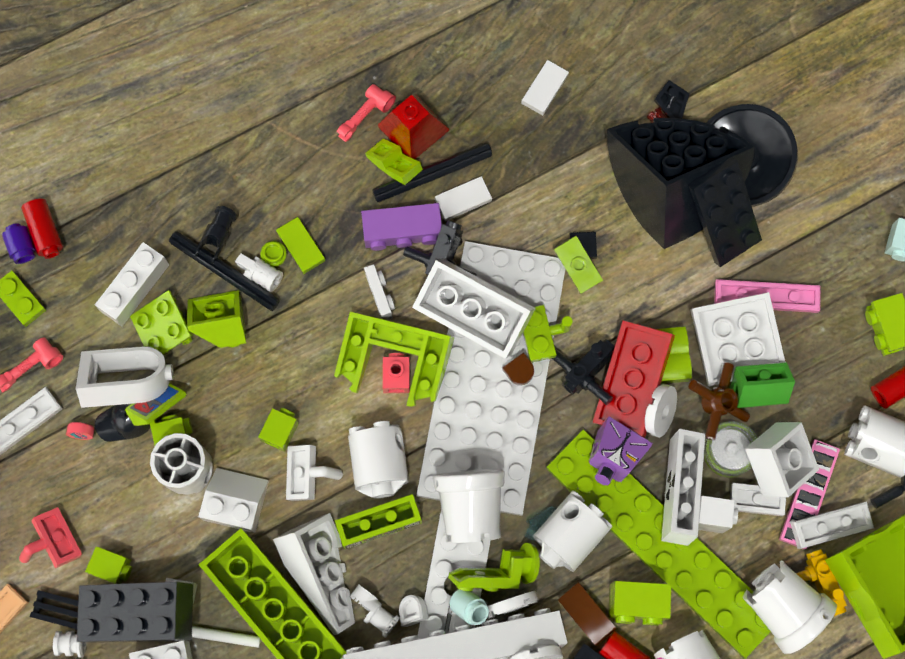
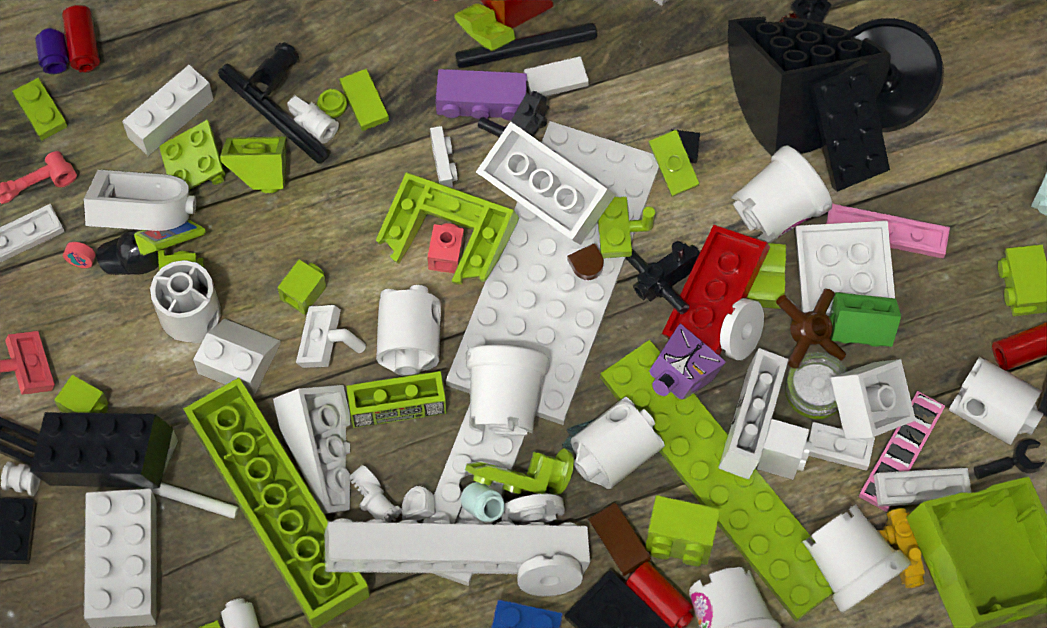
camera: 10 degrees right, 10 degrees down
(676, 284) = (782, 195): none -> white piece

